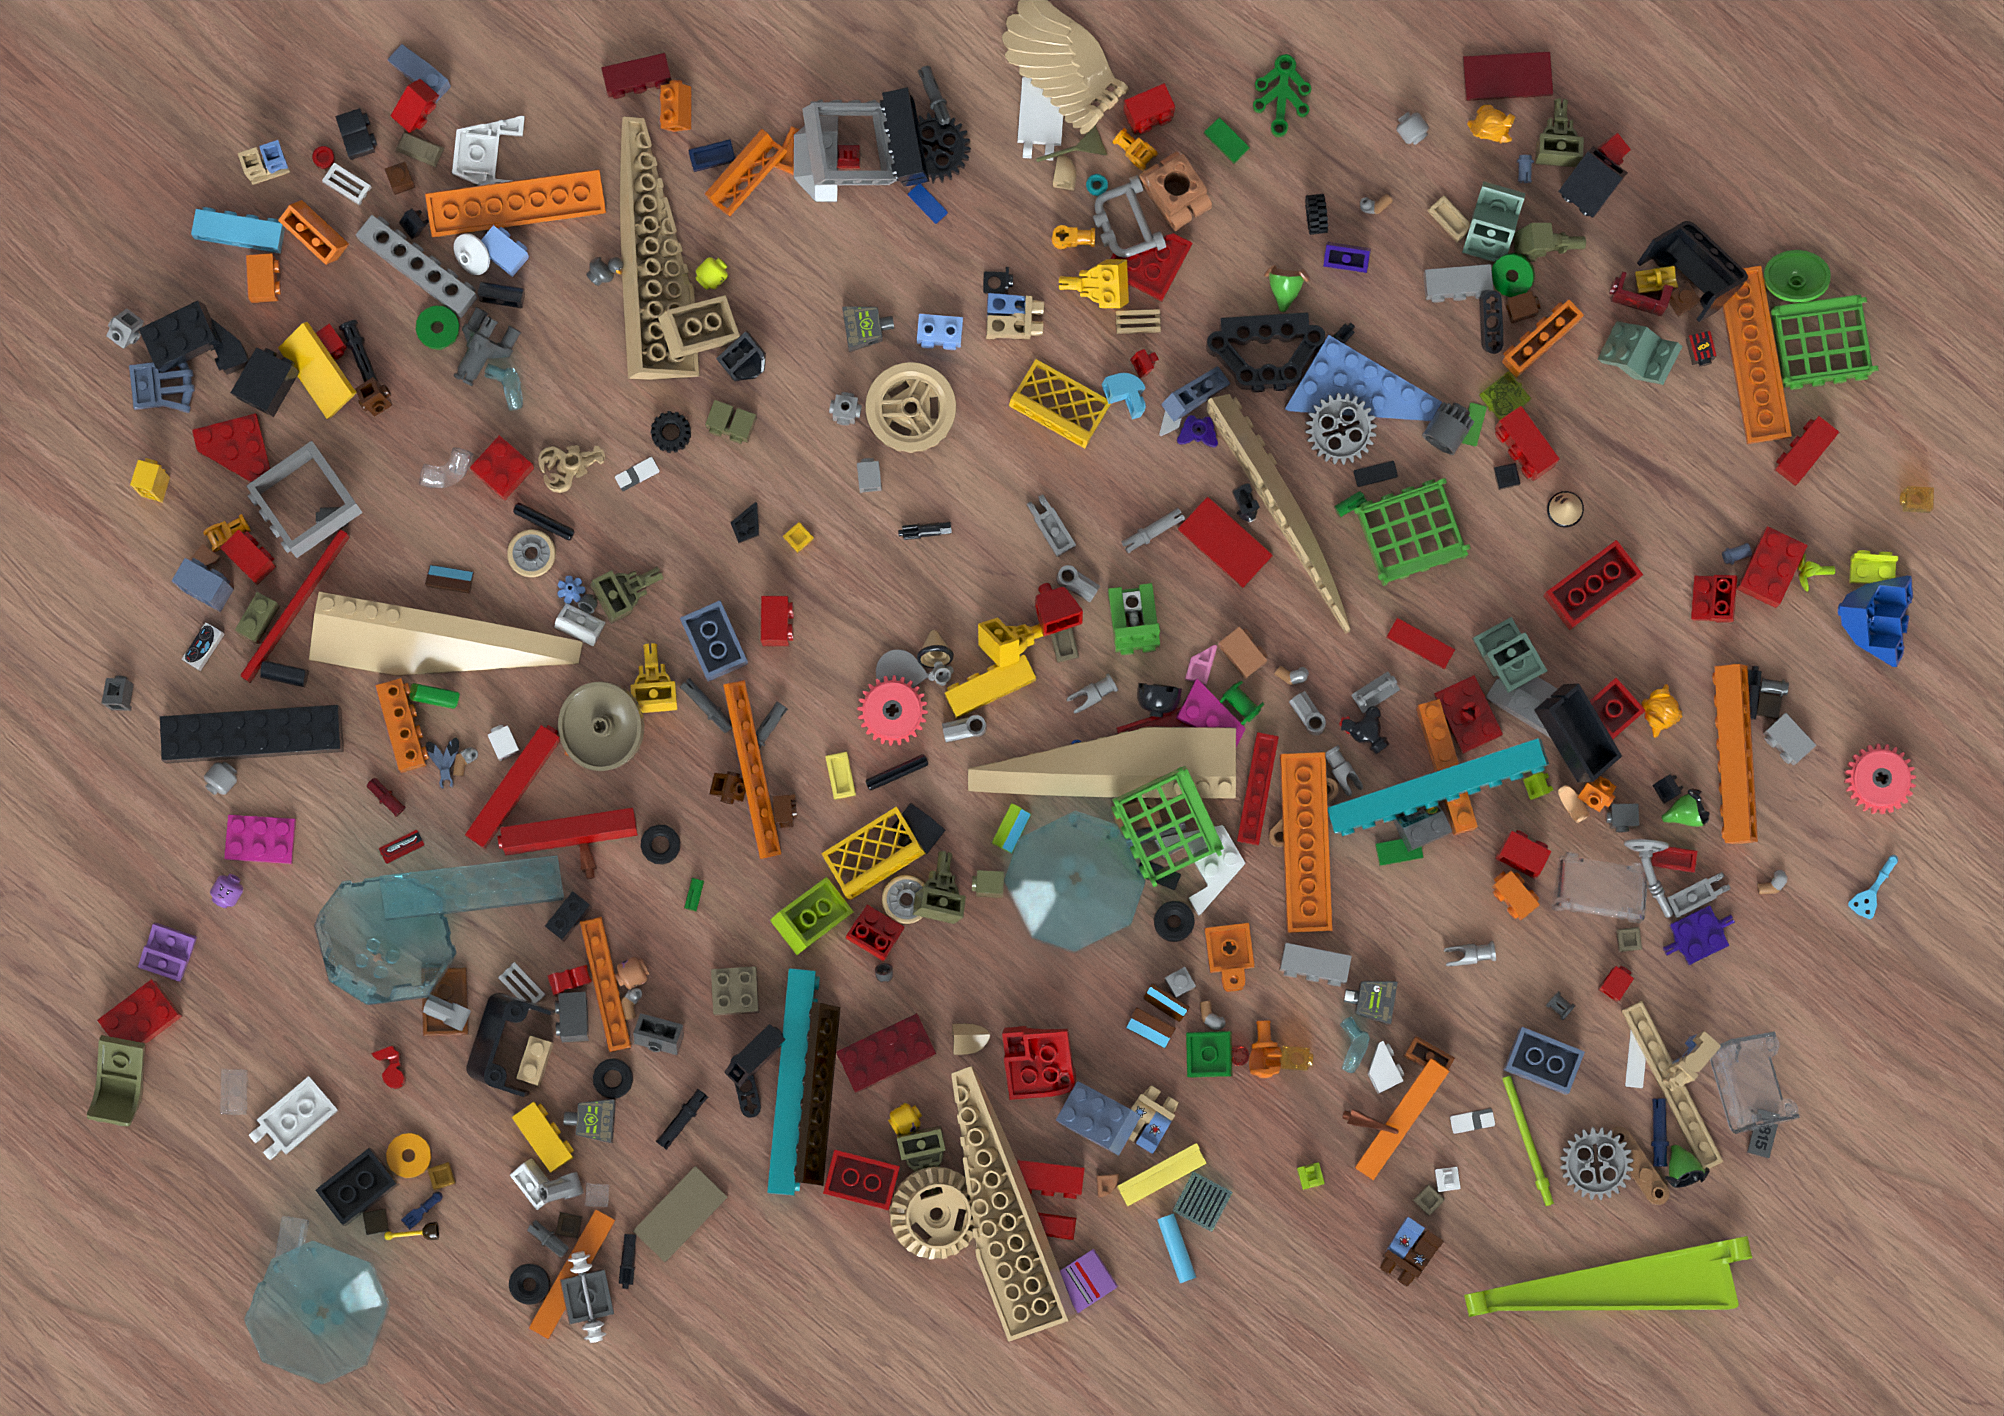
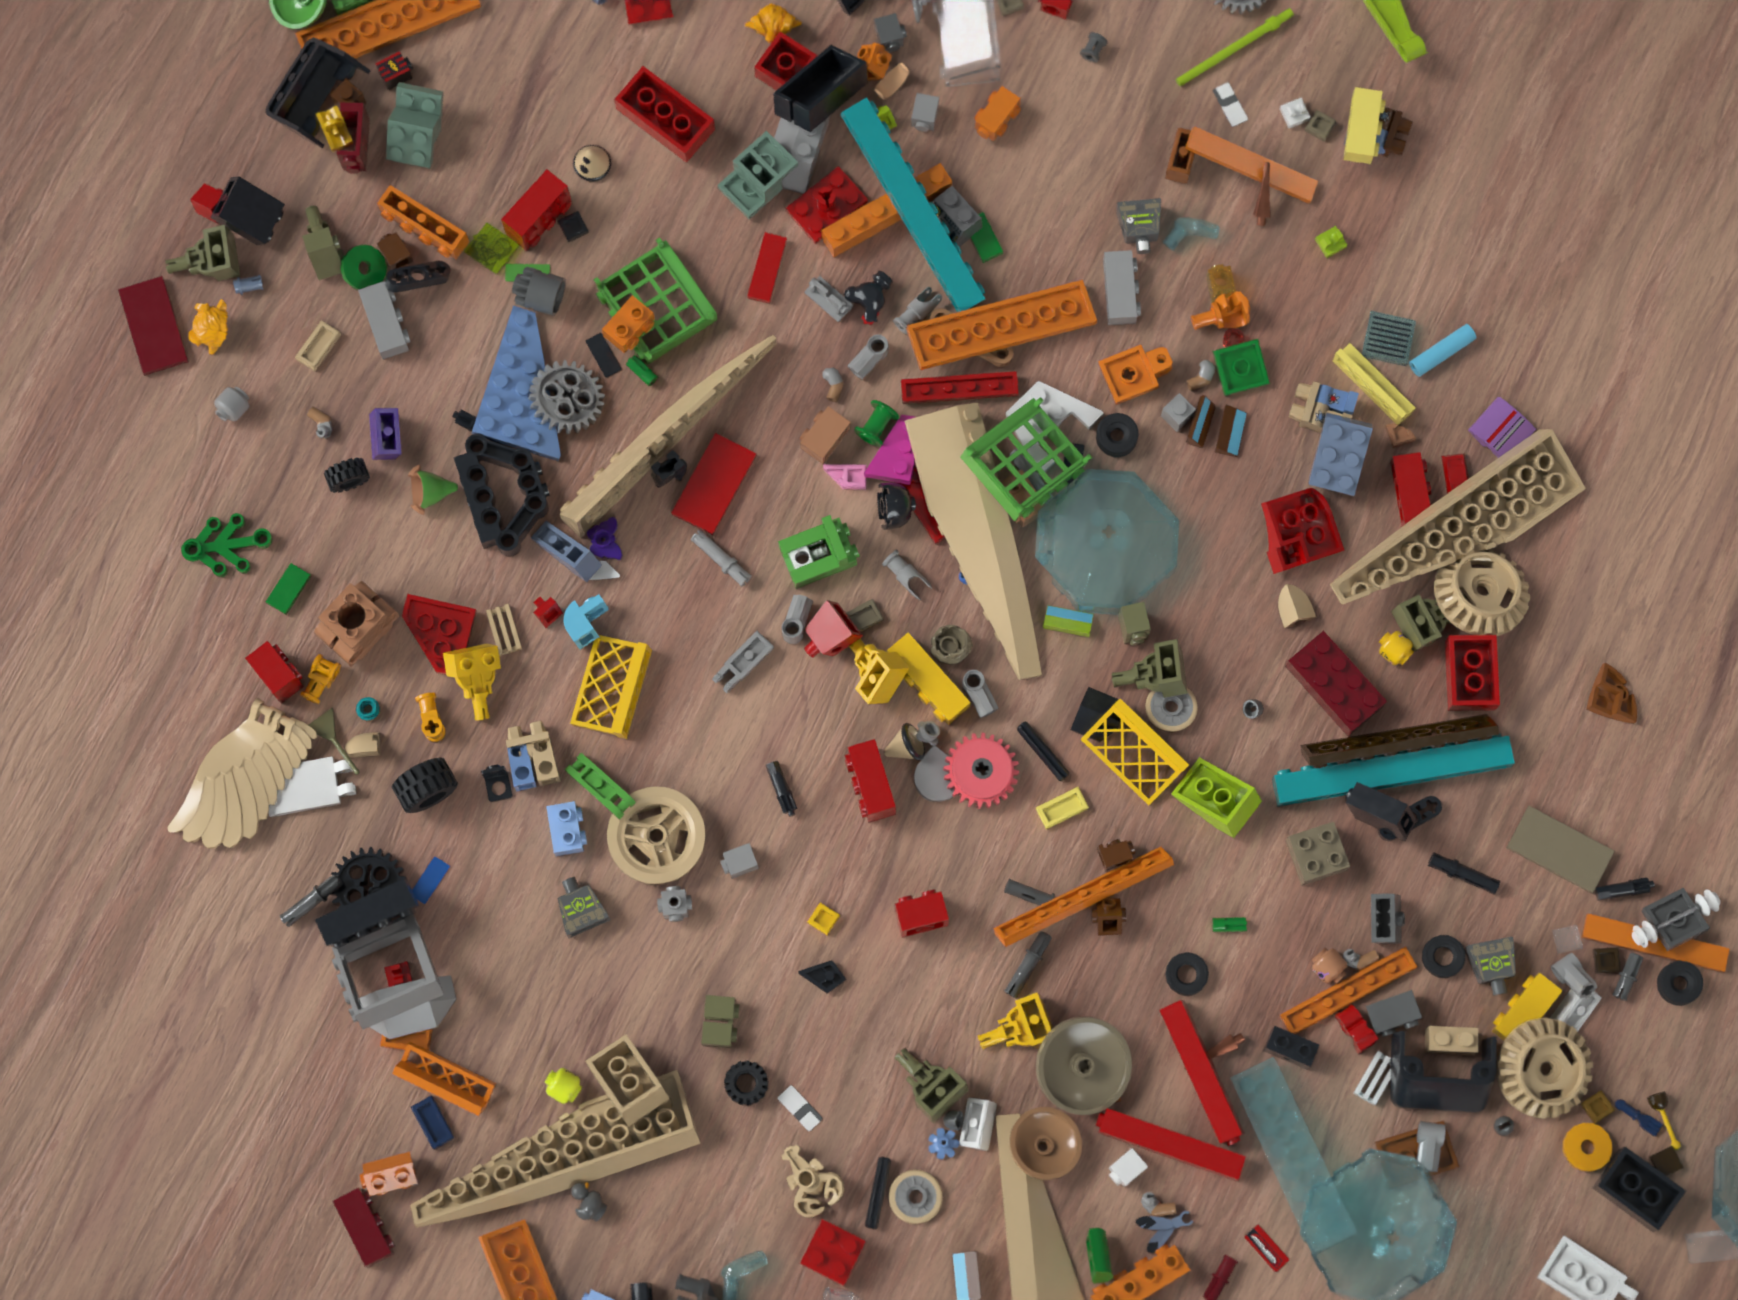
camera: 100 degrees left, 5 degrees down
(392, 1075) = (1510, 1186): red leg -> none
(452, 1084) = (1507, 1130): none -> dark grey hinge
(512, 1140) = (1524, 1087): none -> tan gear
(548, 691) = (1058, 1135): none -> medium nougat dish
(714, 641) = (959, 973): sand blue brick -> none
(743, 358) = (647, 1027): black slope -> none
(807, 1305) = (1611, 697): none -> dark orange brick
(875, 932) = (1216, 727): red brick -> none
(907, 607) = (870, 781): none -> red brick
(969, 368) = (600, 785): none -> bright green plate
(1009, 215) = (424, 785): none -> black tyre
(1016, 715) = (951, 644): none -> dark tan hair
(1108, 237) = (421, 680): light grey bar -> none
(1383, 1070) = (1207, 197): white slope -> none
(1391, 498) = (629, 324): none -> orange brick
(1411, 1234) = (1364, 125): none -> light yellow brick
(1473, 953) = (1065, 140): light grey piece -> none
(1493, 222) = (313, 298): sand green bracket -> none
(1523, 854) = (954, 113): red brick -> none
(1535, 827) = (925, 112): none -> light grey brick
(1544, 1060) = (1154, 47): sand blue brick -> none

